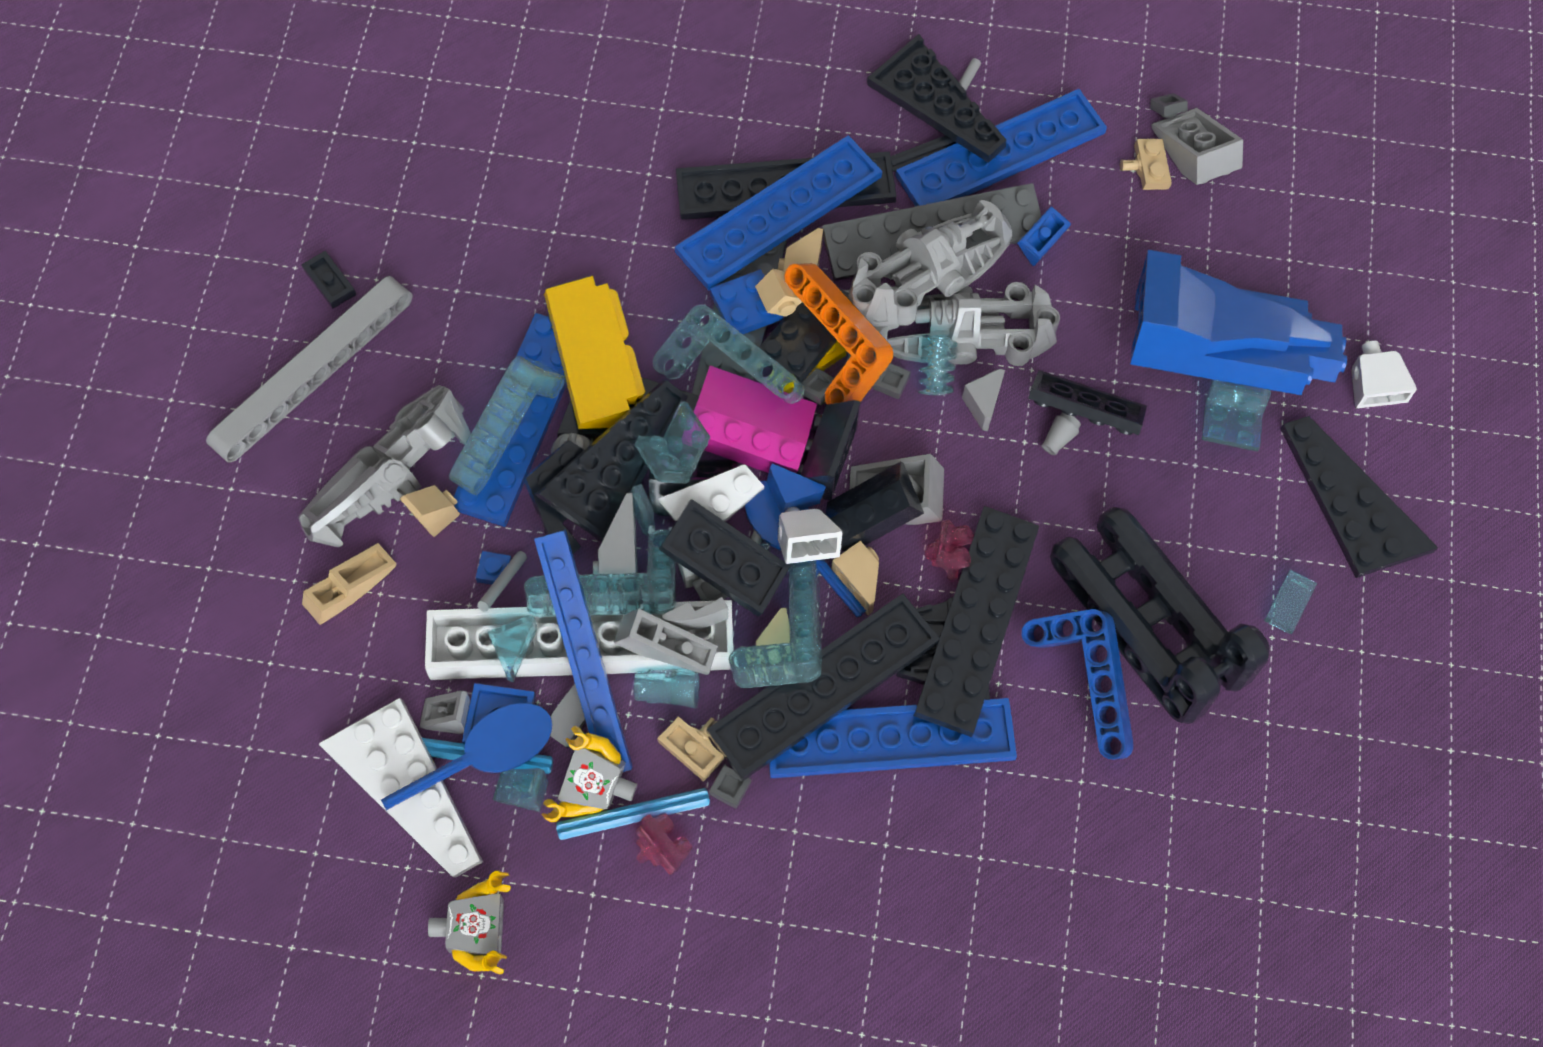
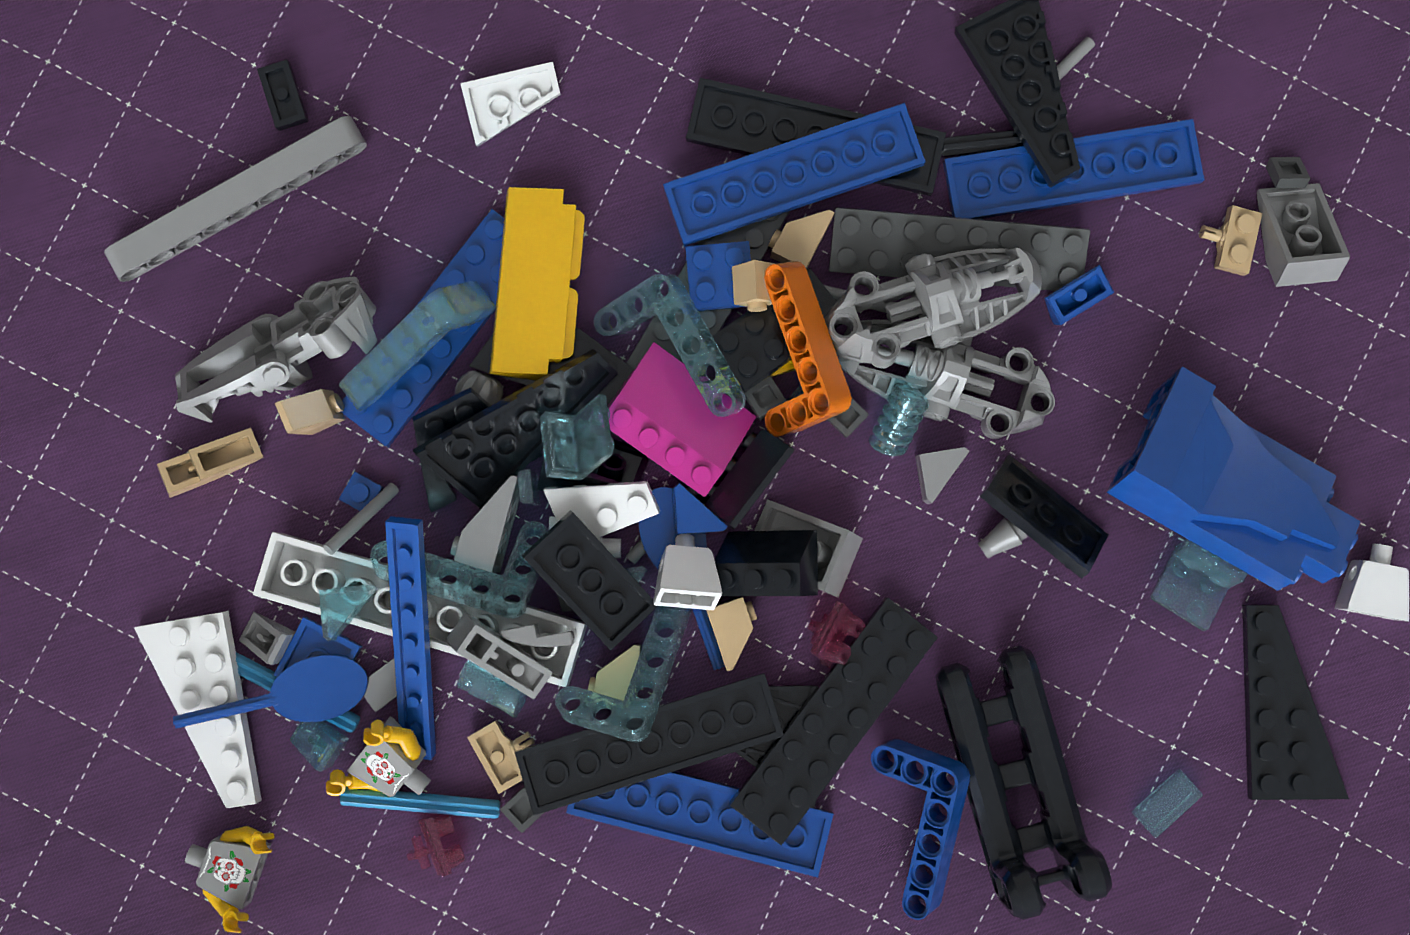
camera: 20 degrees right, 20 degrees up
(521, 228) = (507, 98): none -> white wing

